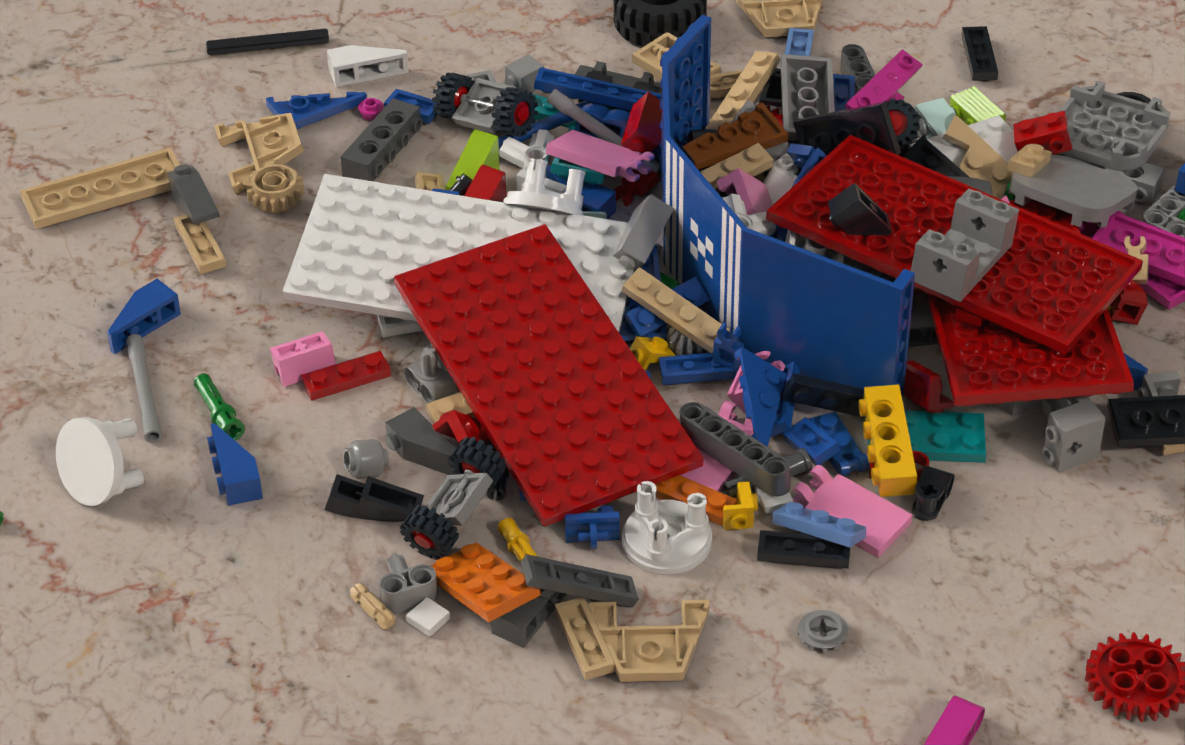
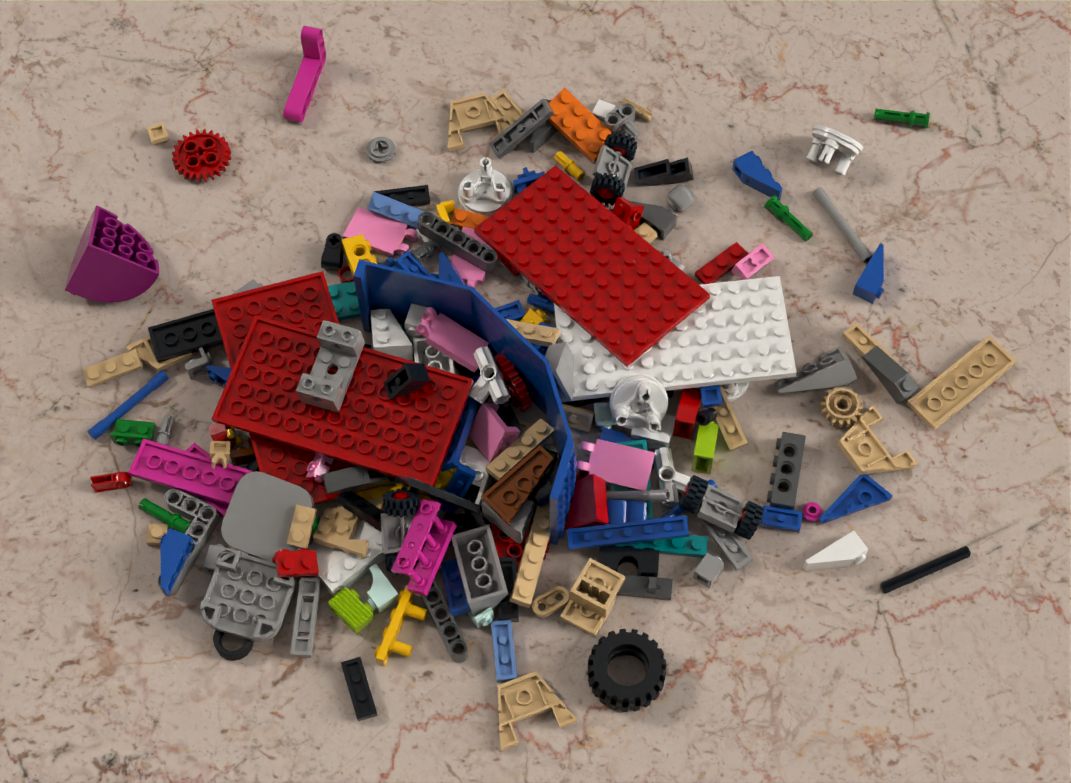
camera: 165 degrees right, 20 degrees up
(269, 226) = (830, 371): none -> light grey wedge
(924, 388) = (346, 317): red bracket -> none
(931, 82) = (397, 617): none -> yellow plate
(1039, 97) = (305, 617): none -> light grey hinge

